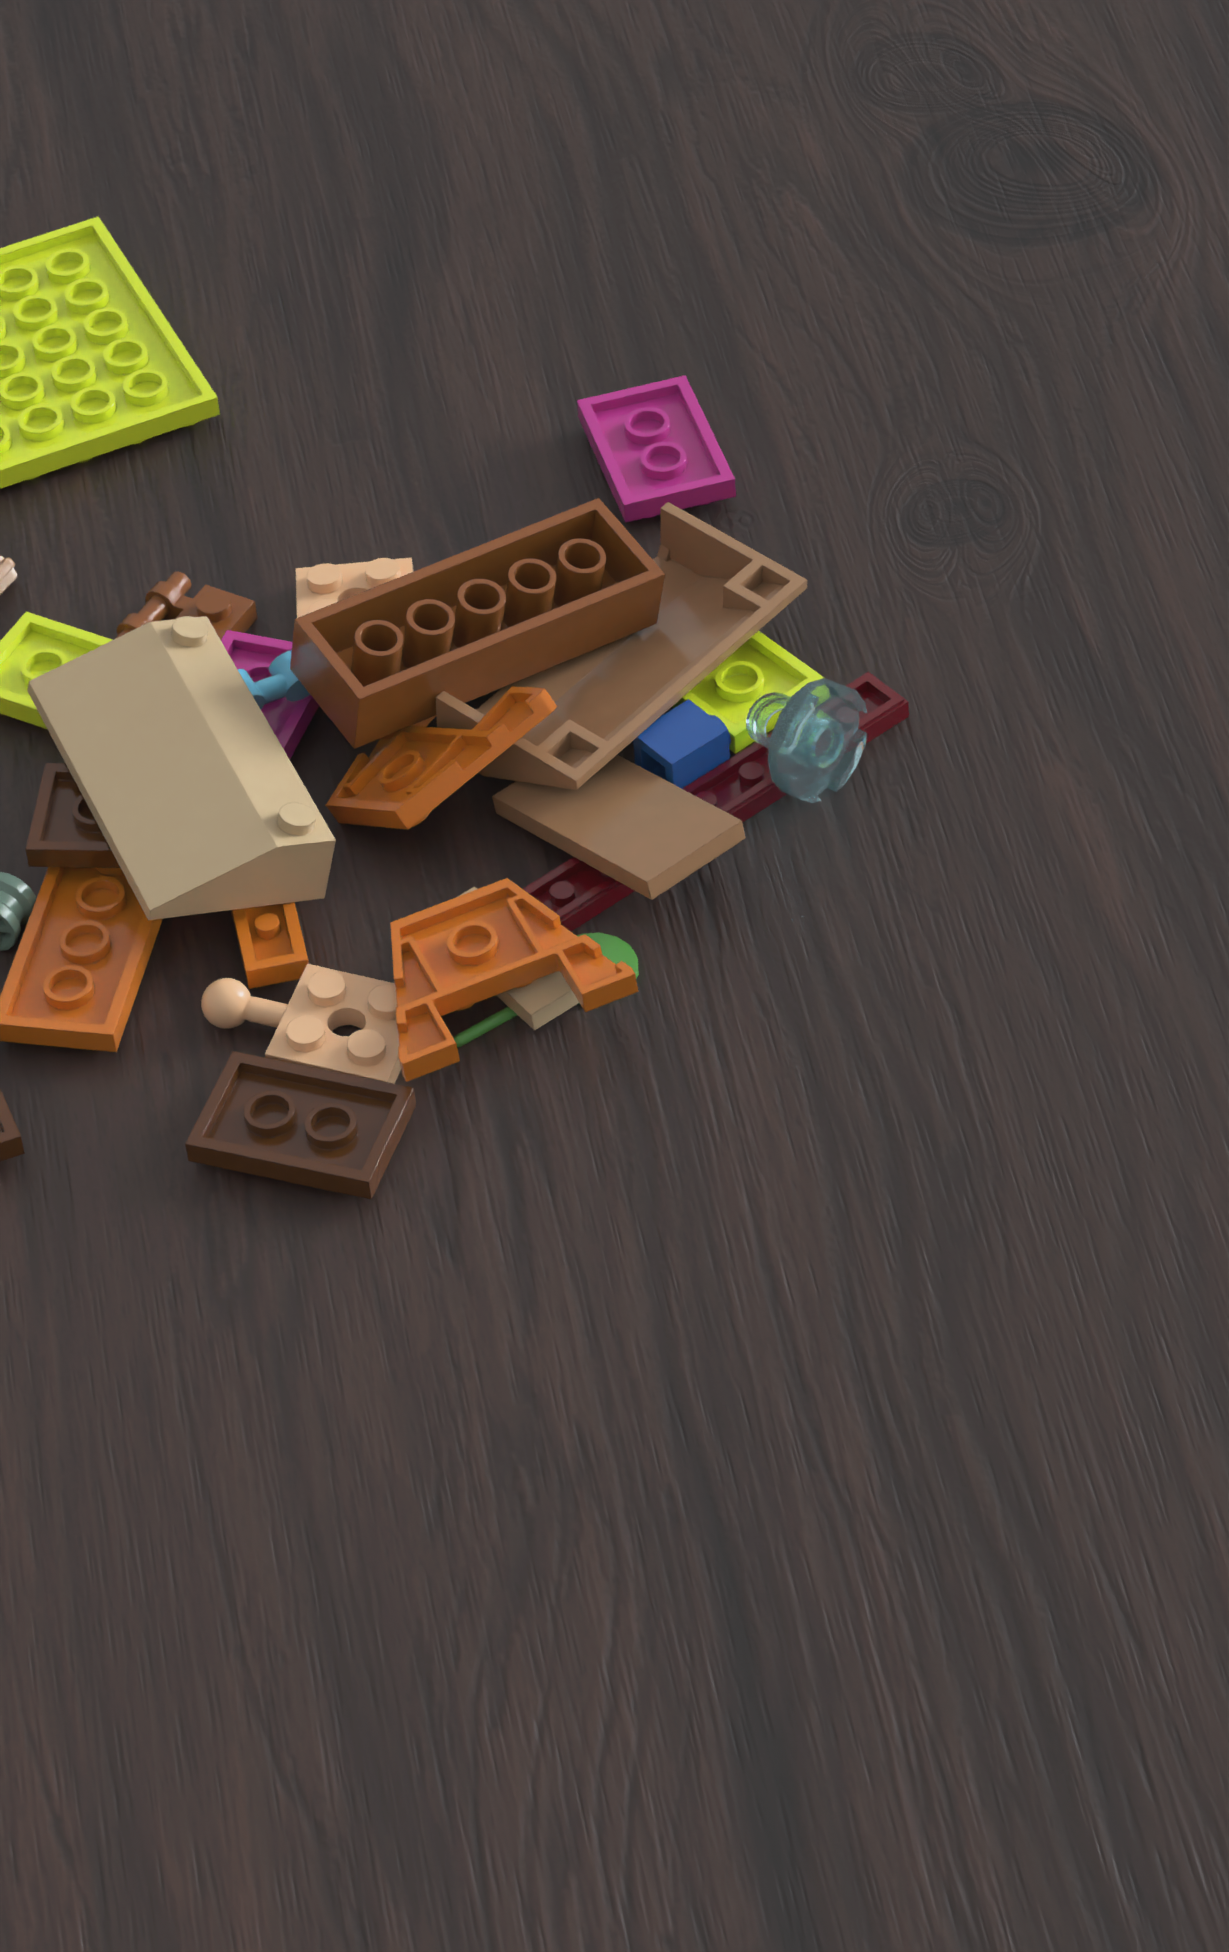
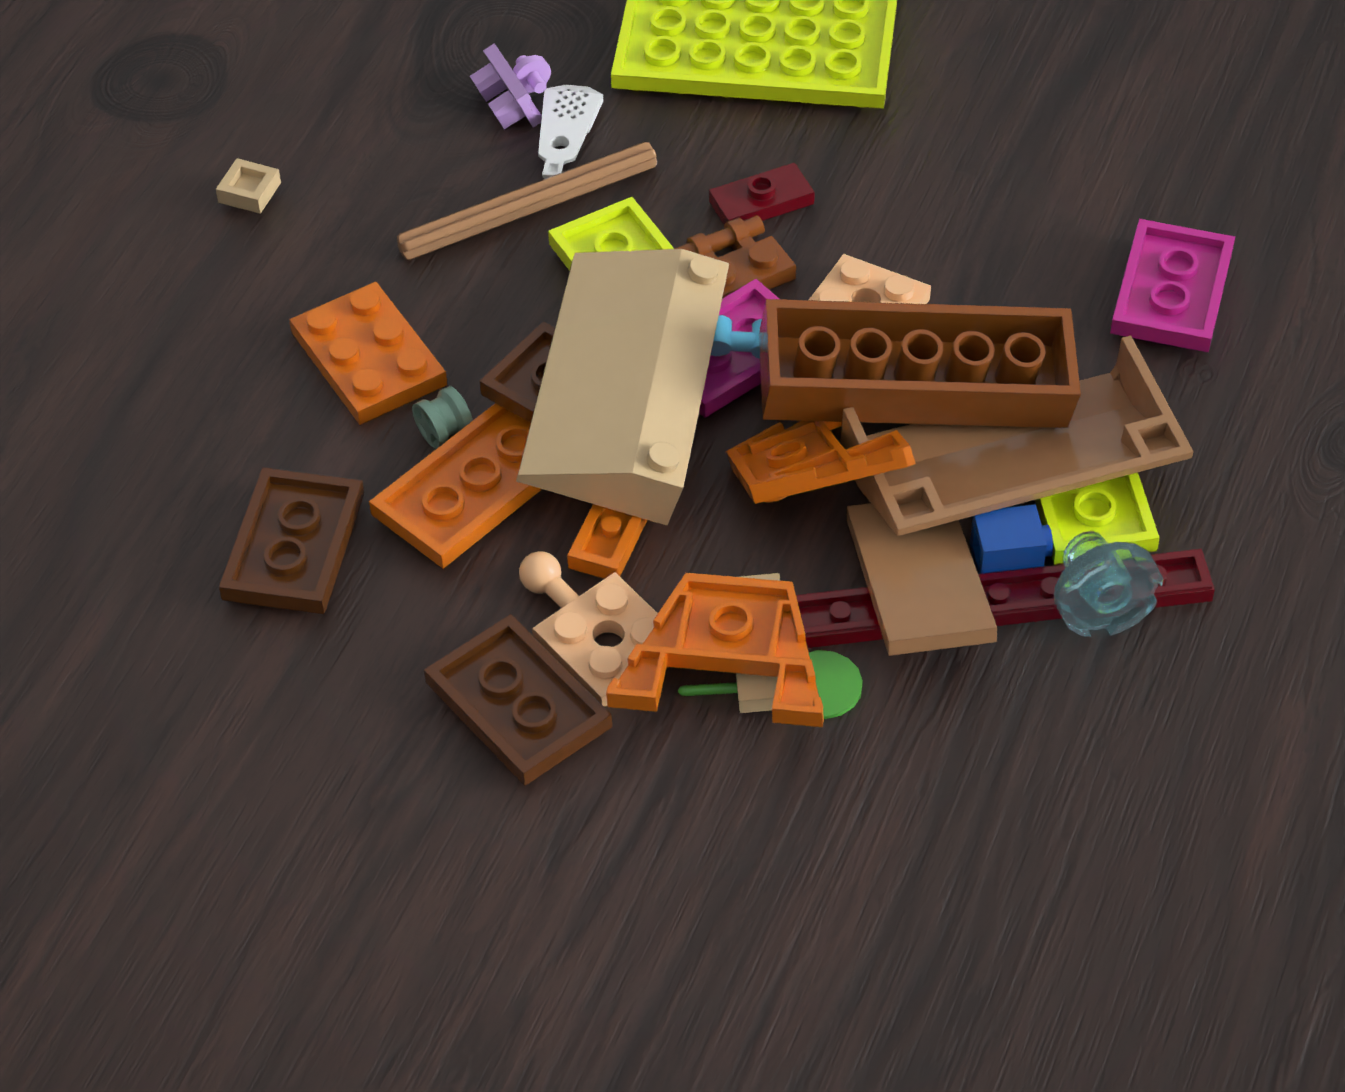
camera: 30 degrees right, 5 degrees up
(159, 550) = (763, 195): none -> dark red plate

